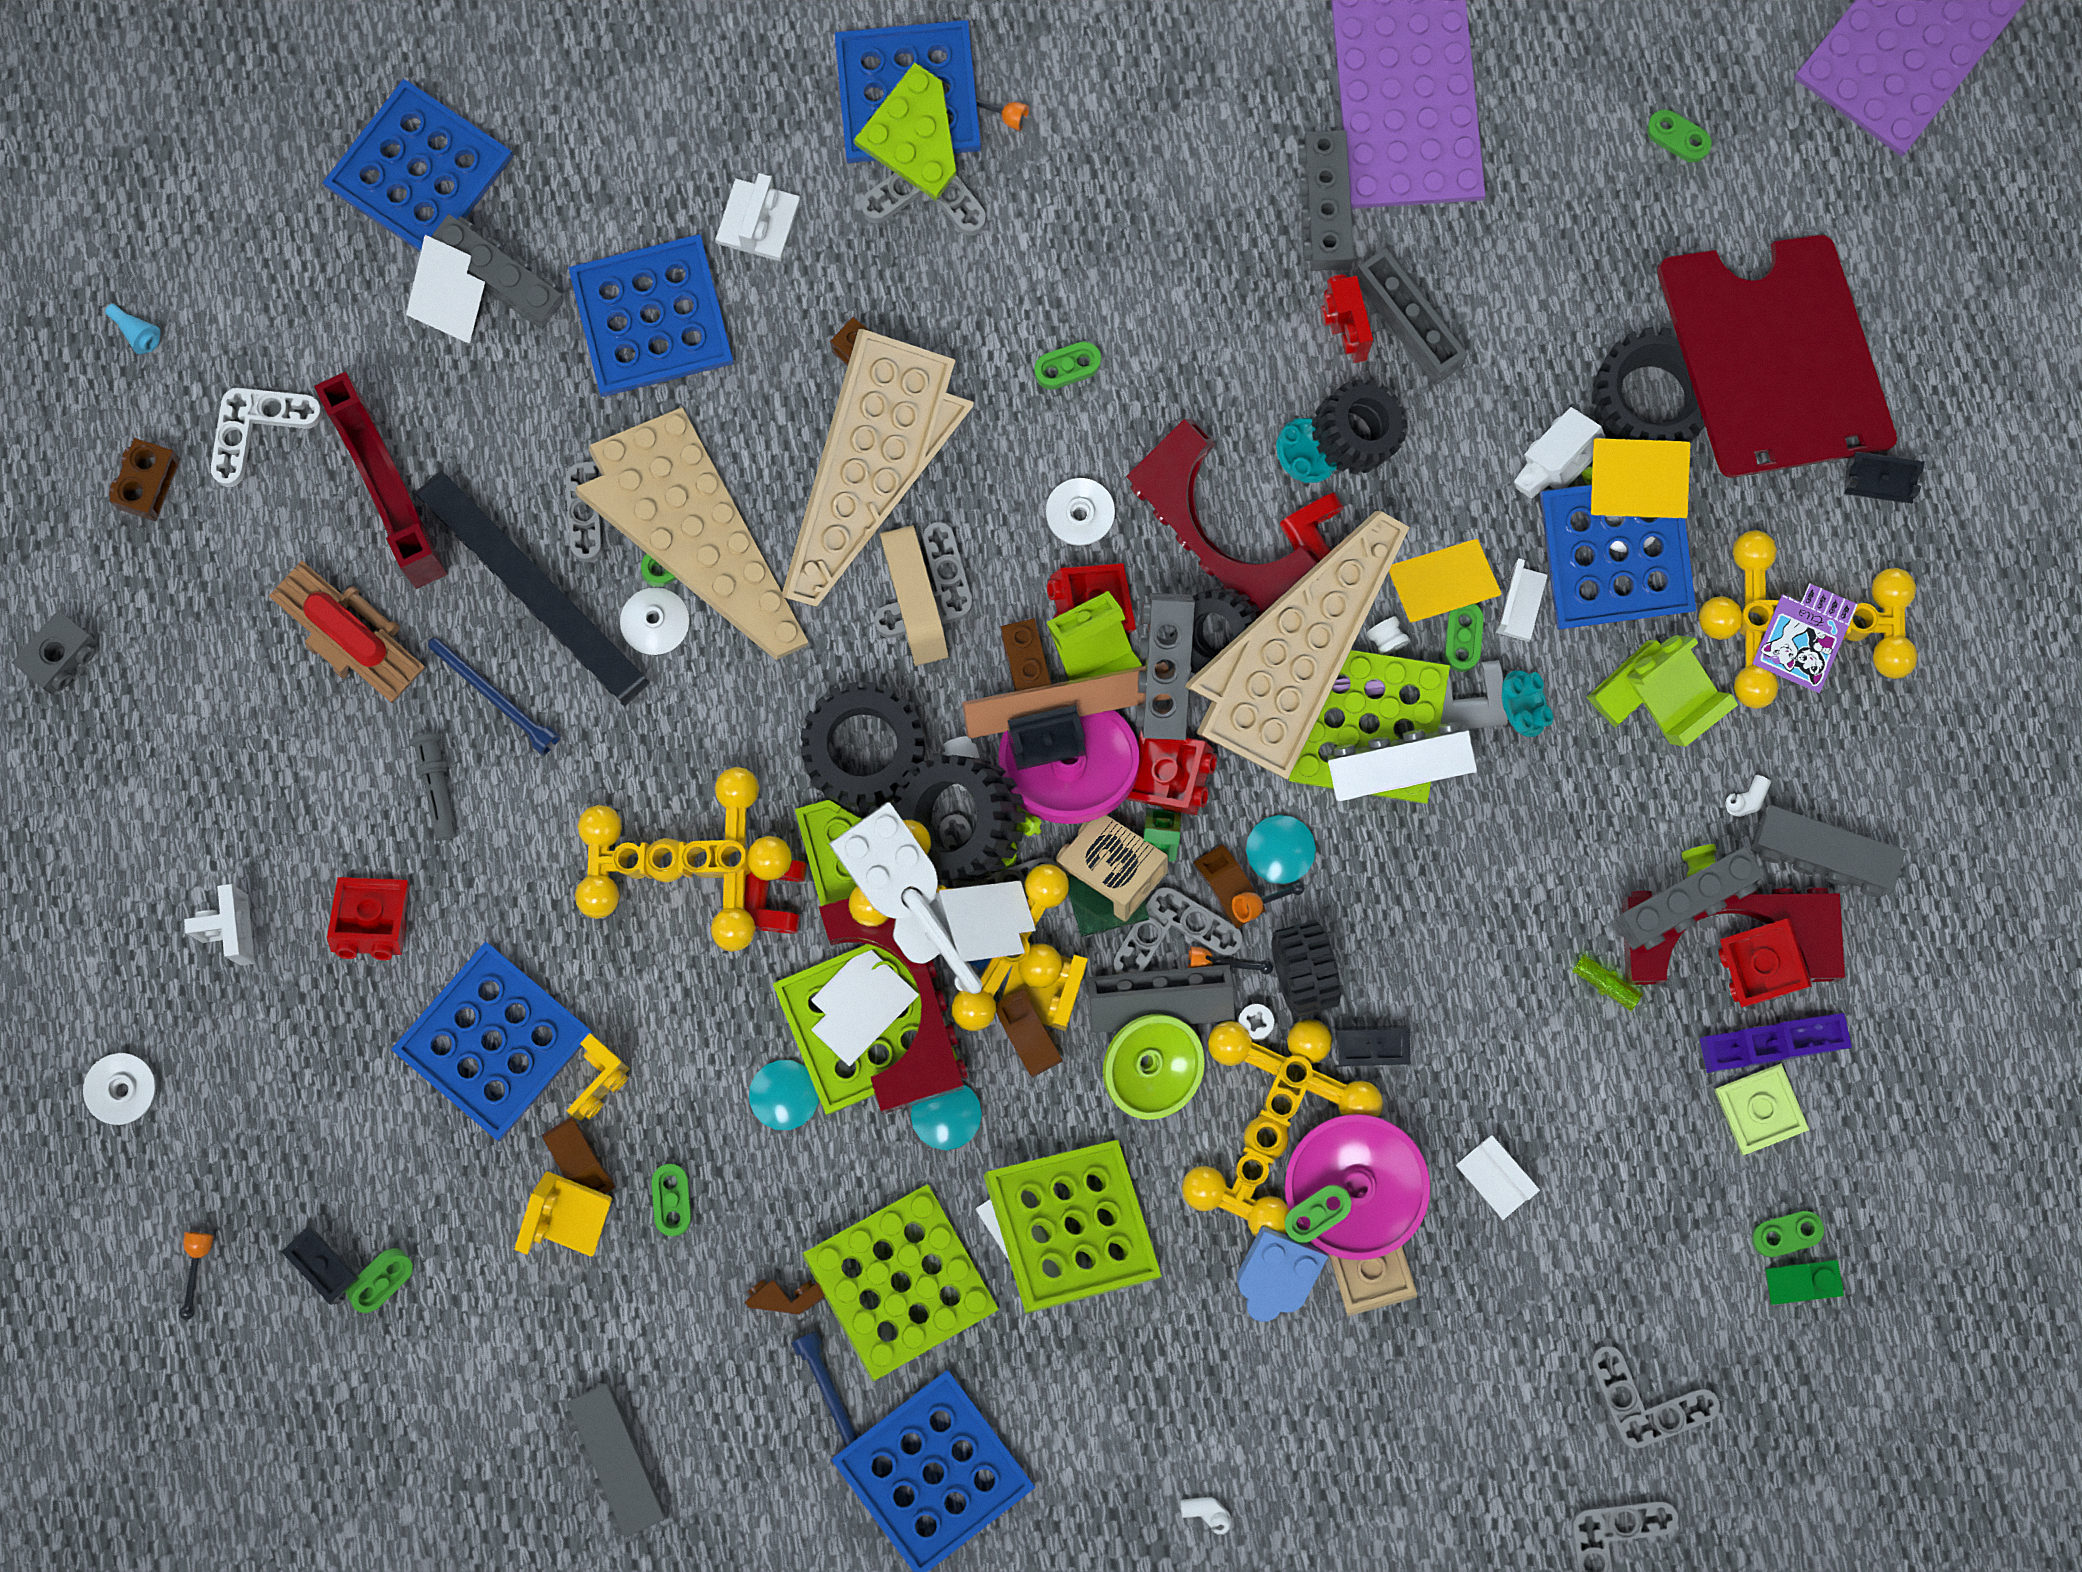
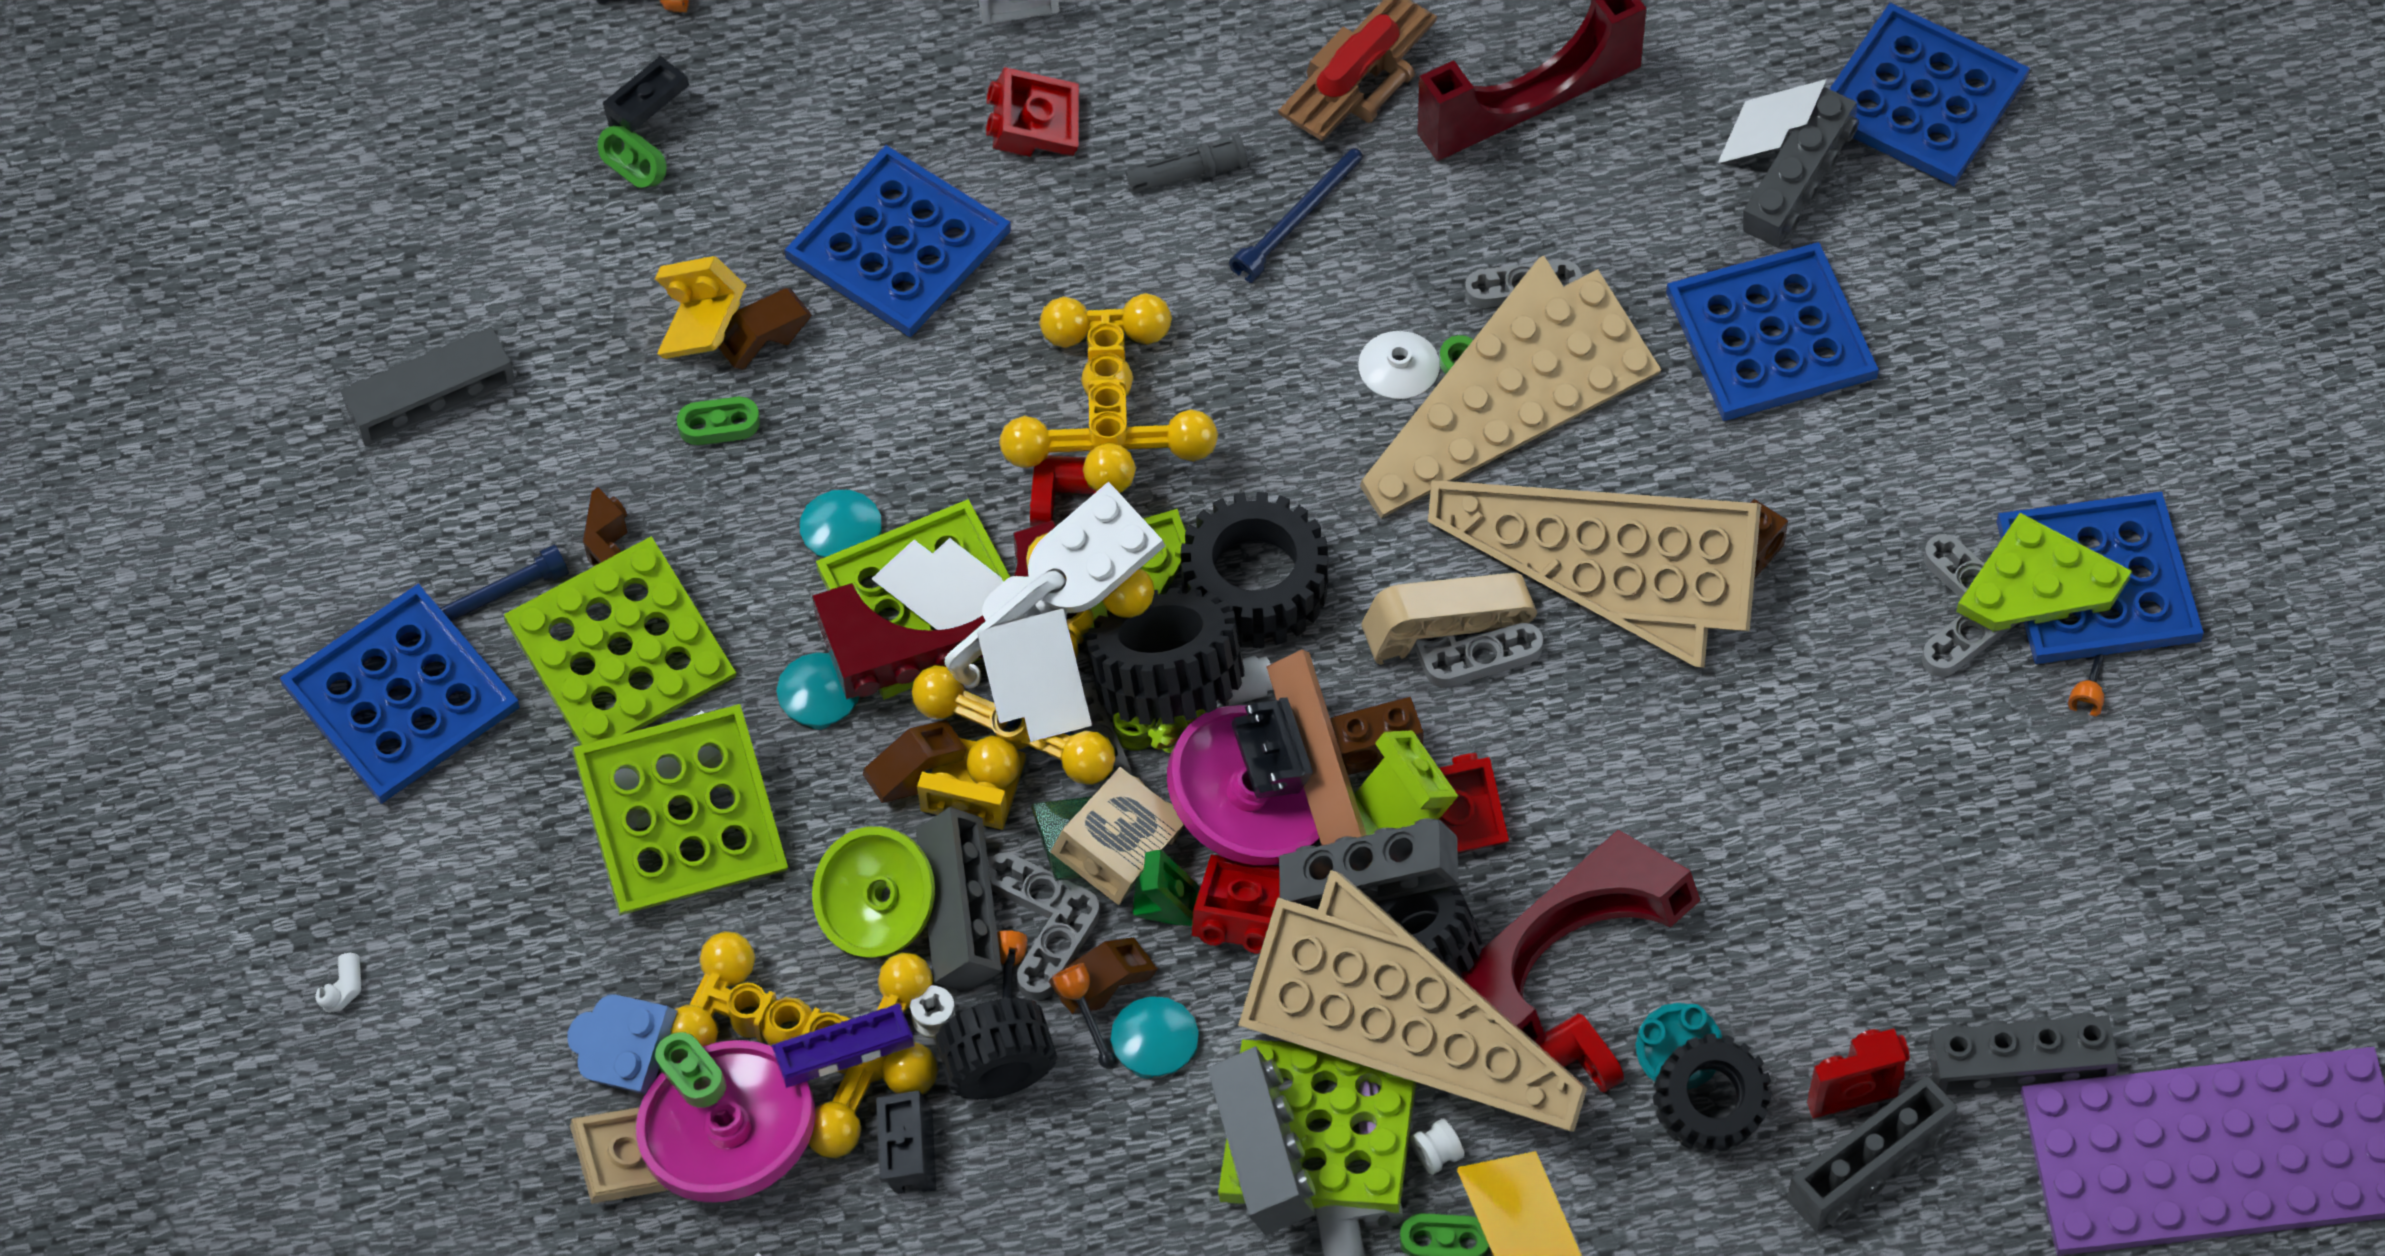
camera: 90 degrees right, 20 degrees down
(532, 588) = (1422, 237): black beam -> none
(611, 1078) = (860, 342): yellow bracket -> none
(758, 218) = (1908, 433): white bracket -> none
(1066, 364) = (1761, 772): bright green plate -> none
(1076, 495) = (1576, 773): white dish -> none
(1305, 1088) = (843, 1045): none -> dark purple plate

